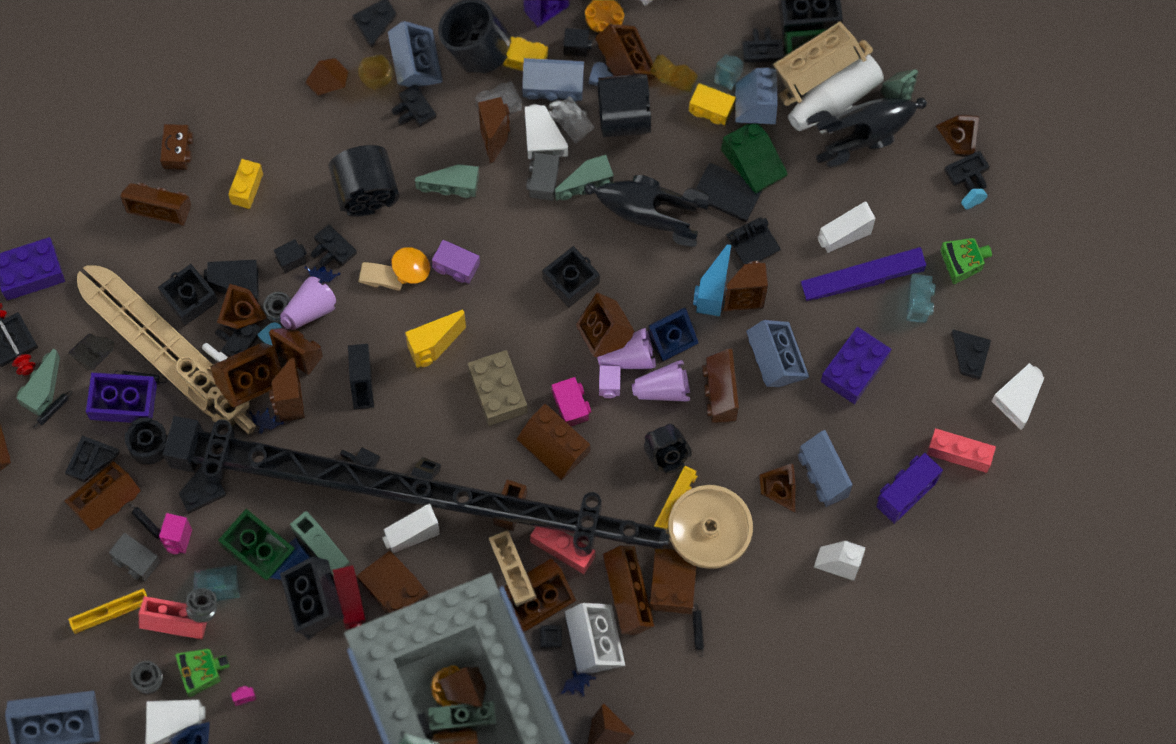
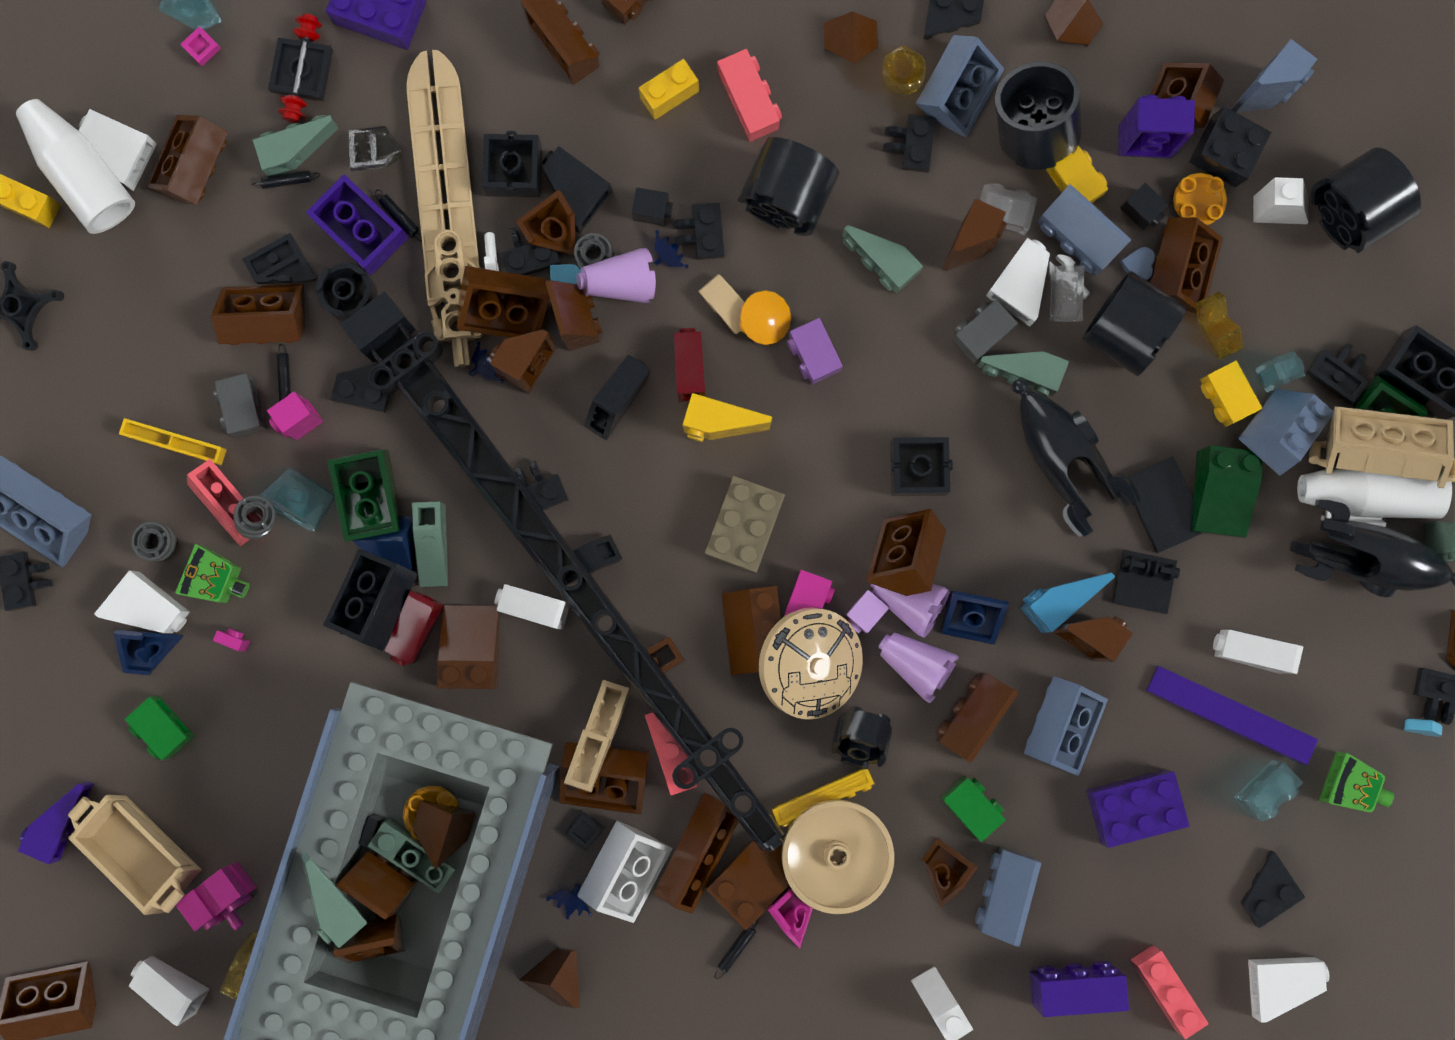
camera: 40 degrees right, 15 degrees up
(295, 152) = (749, 94): none -> coral brick
(388, 324) = (689, 364): none -> dark red slope
(602, 431) = (810, 663): none -> tan dish
(712, 583) = (791, 915): none -> dark pink slope
(764, 439) = (973, 808): none -> green brick

